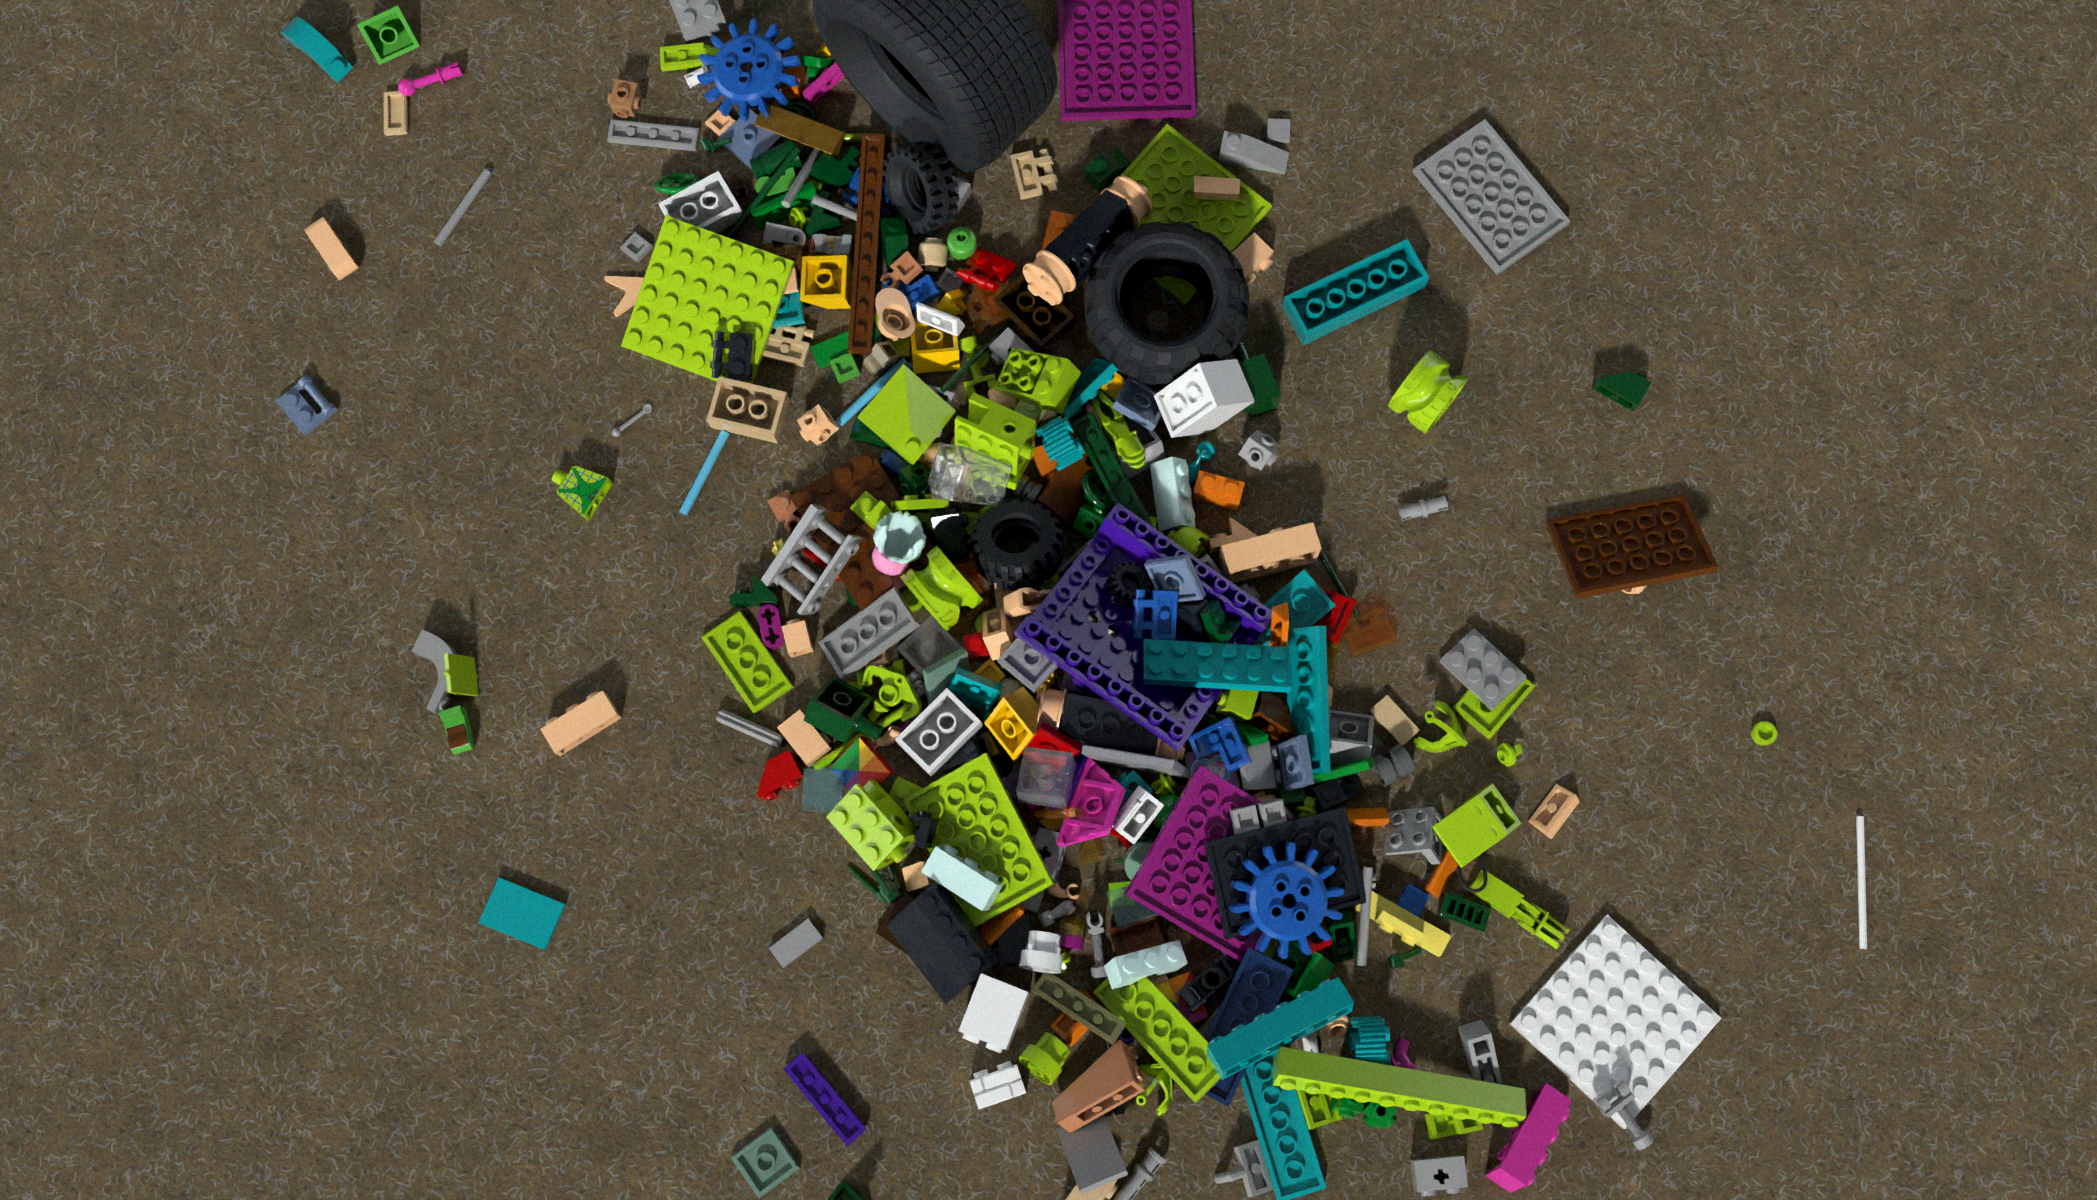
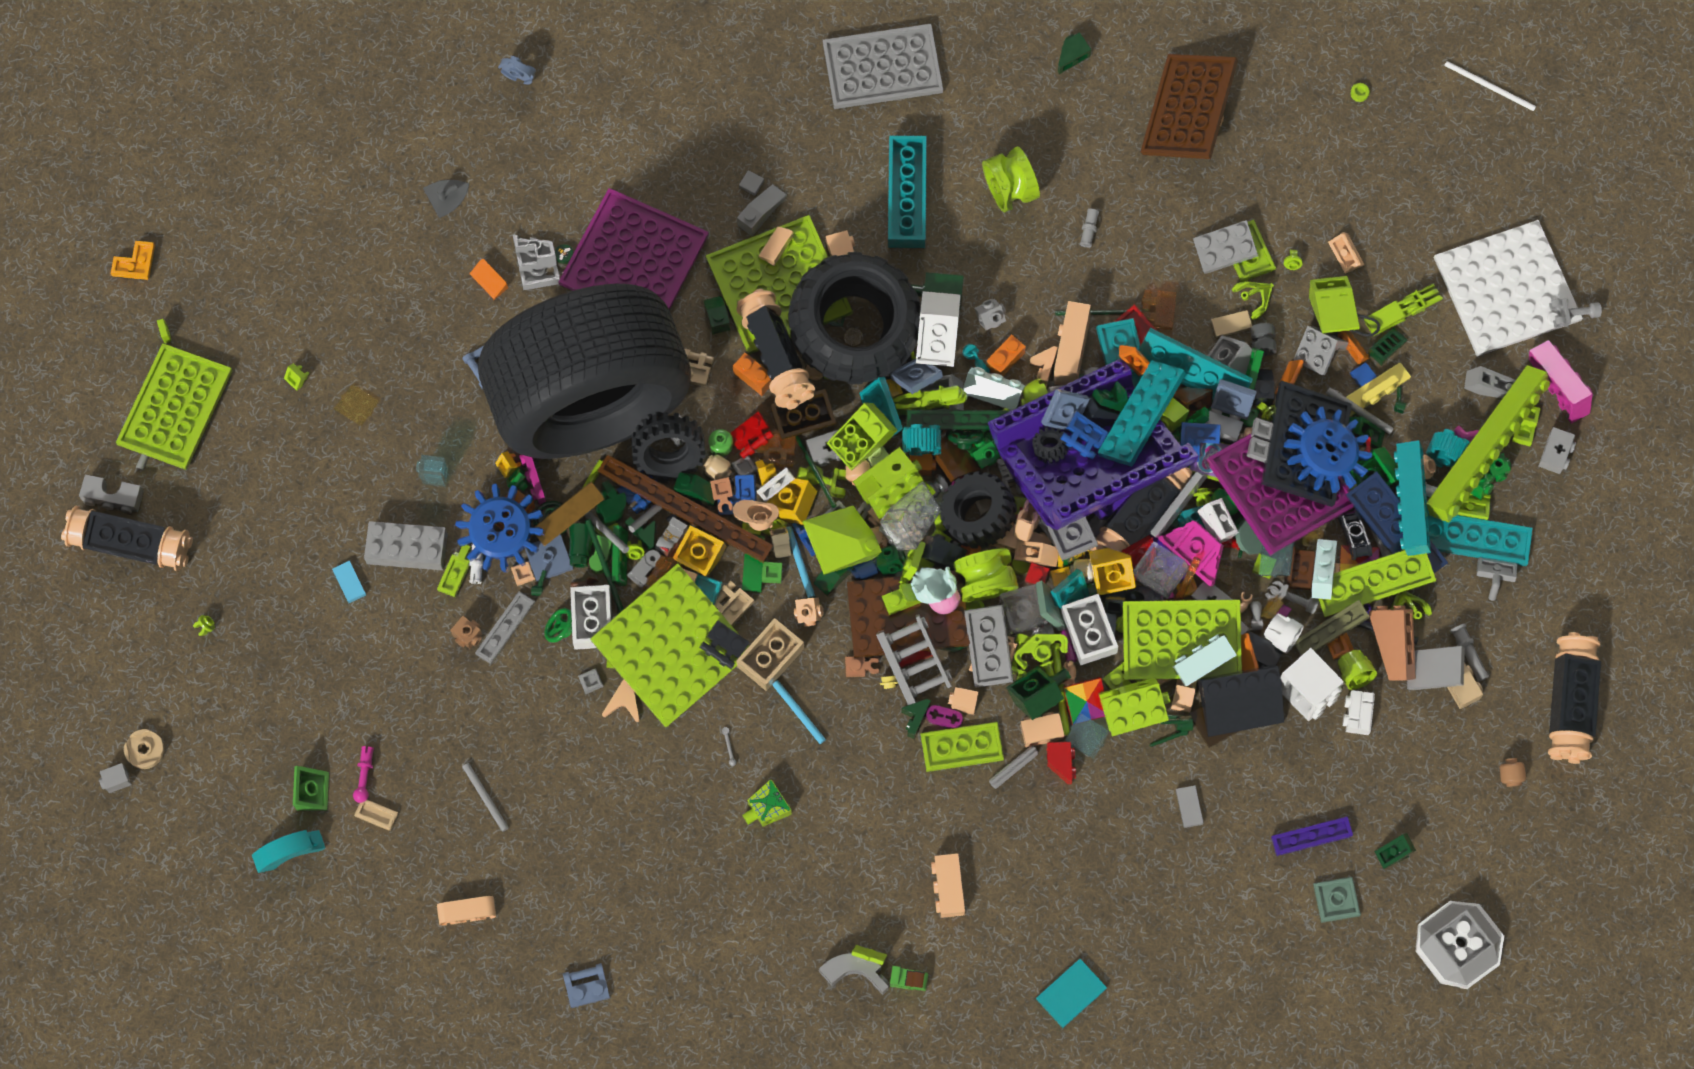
camera: 65 degrees left, 5 degrees down
(926, 830) = (1158, 672): black bracket -> none

